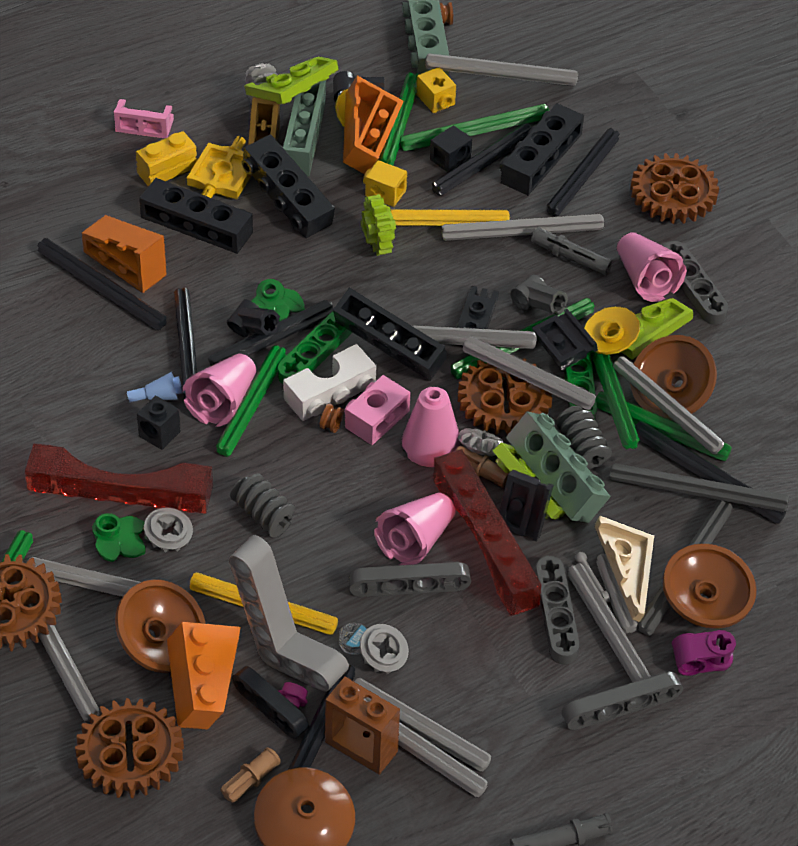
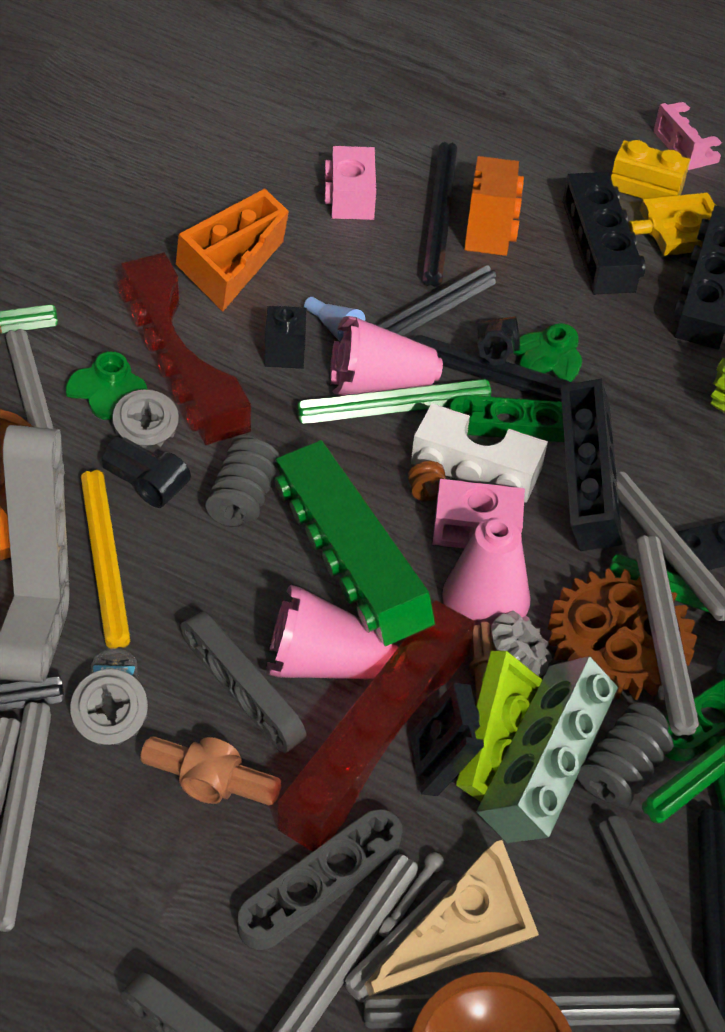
camera: 55 degrees right, 0 degrees up
(38, 312) = (351, 182): none -> bright pink brick
(55, 408) = (232, 246): none -> orange wedge
(211, 550) = (154, 477): none -> black piece
(362, 471) = (354, 544): none -> green brick
(459, 623) = (210, 770): none -> nougat axle

